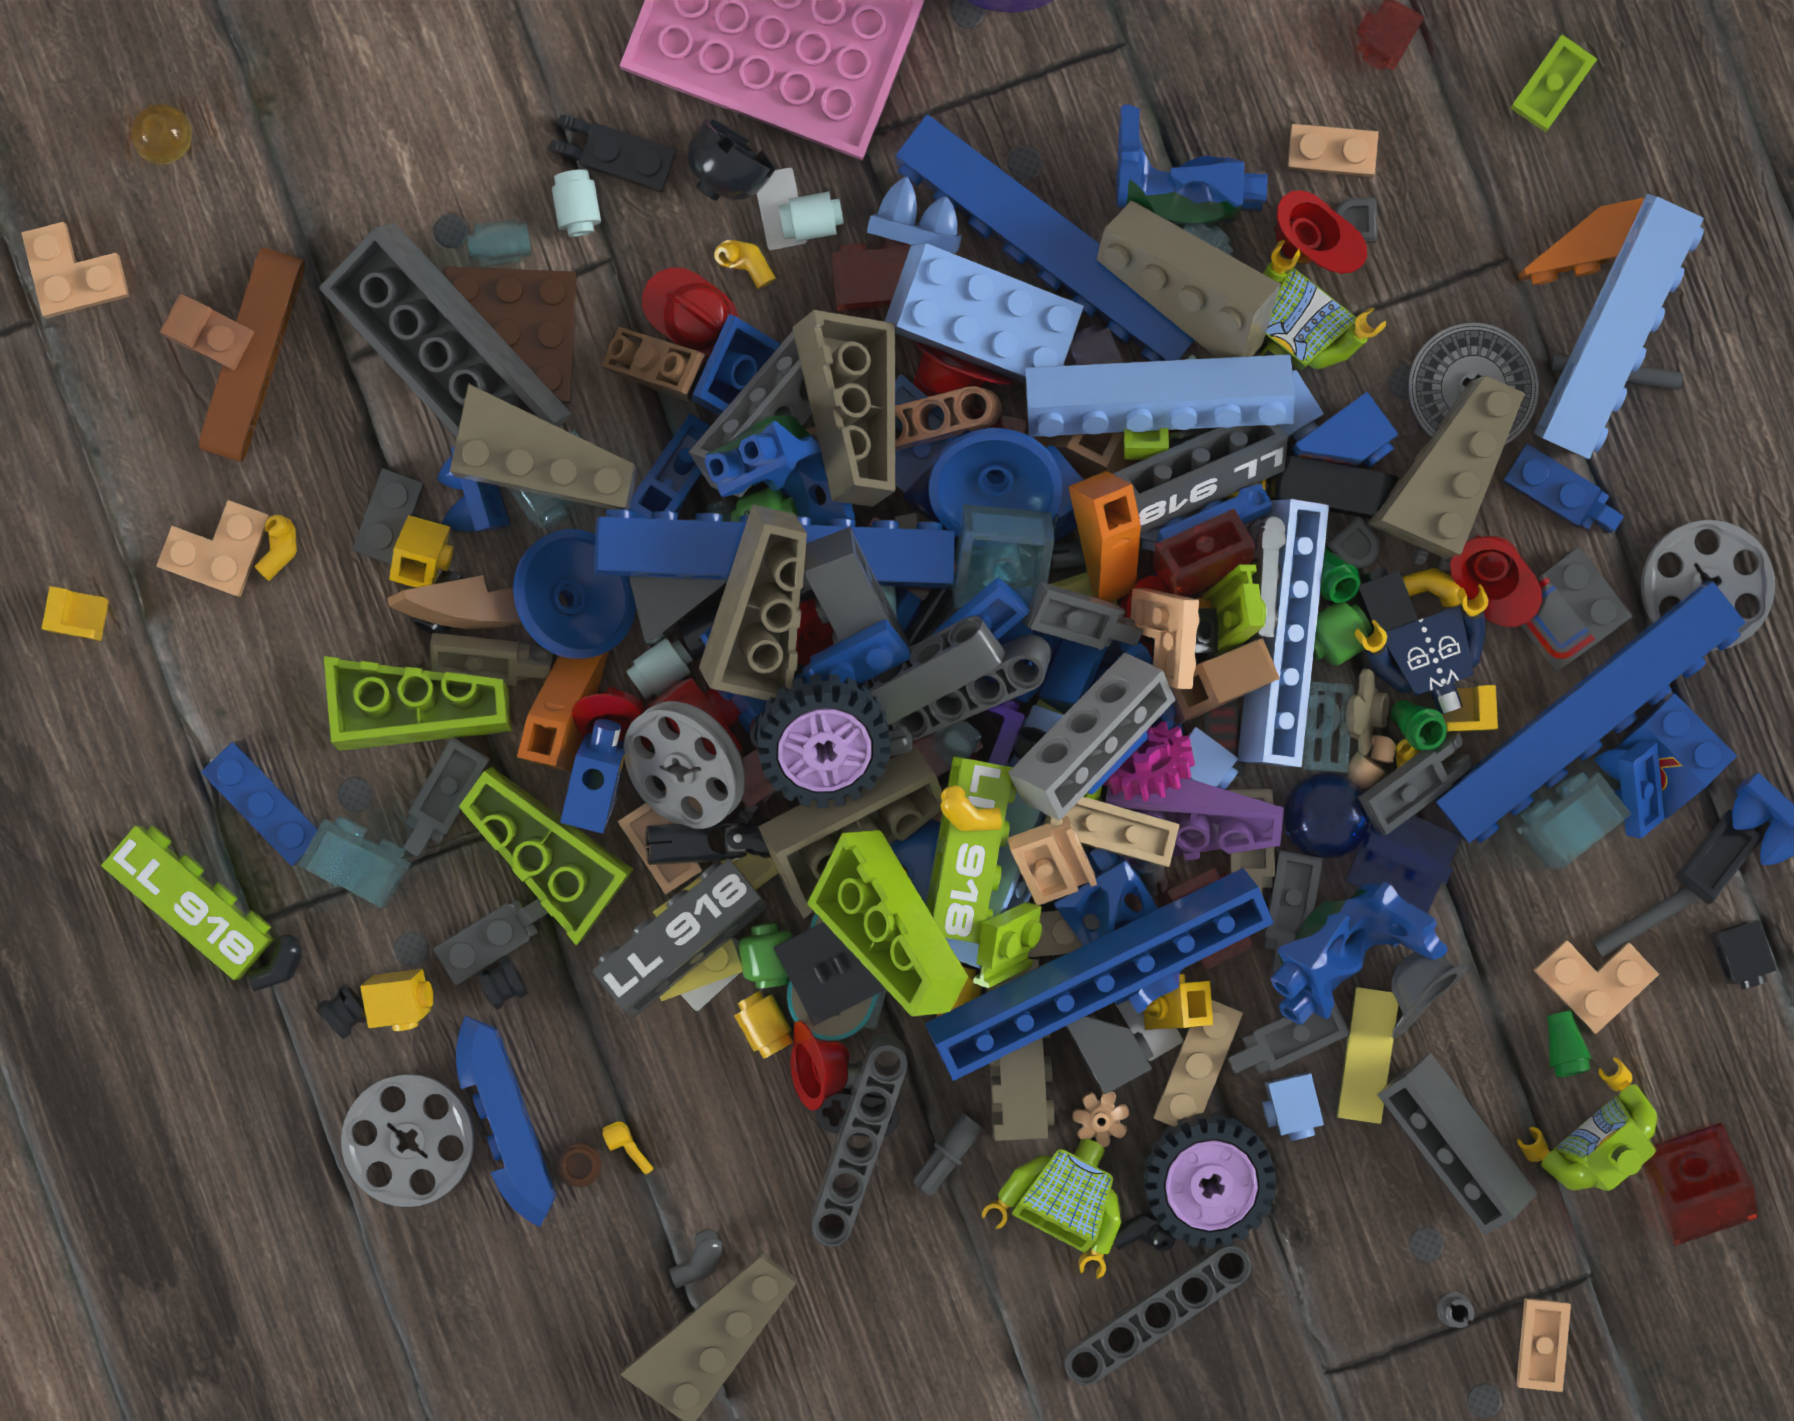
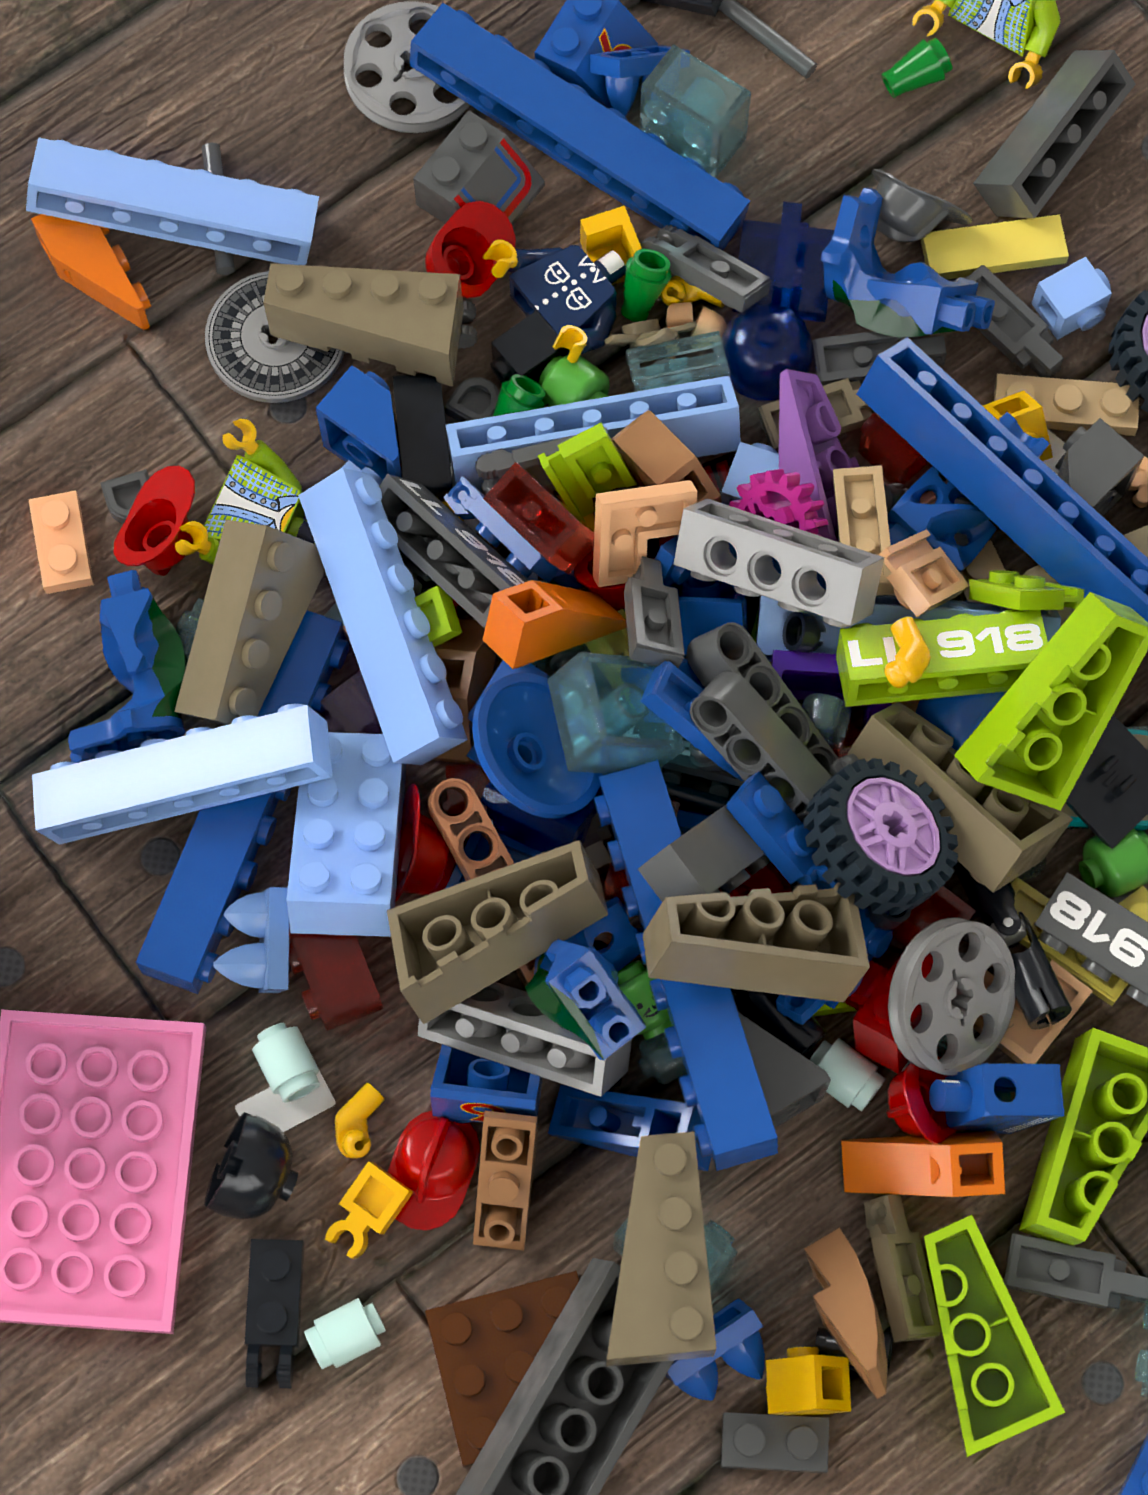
camera: 105 degrees left, 15 degrees down
(499, 242) = (417, 1409): clear light blue brick -> none
(597, 605) = (813, 1168): blue dish -> none
(673, 253) = (372, 1203): none -> yellow plate
(1072, 192) = (182, 774): none -> brick
(1435, 582) = (491, 311): yellow arm -> none
(1560, 490) = (359, 219): blue hinge -> none
(1593, 993) = (853, 63): light nougat plate -> none

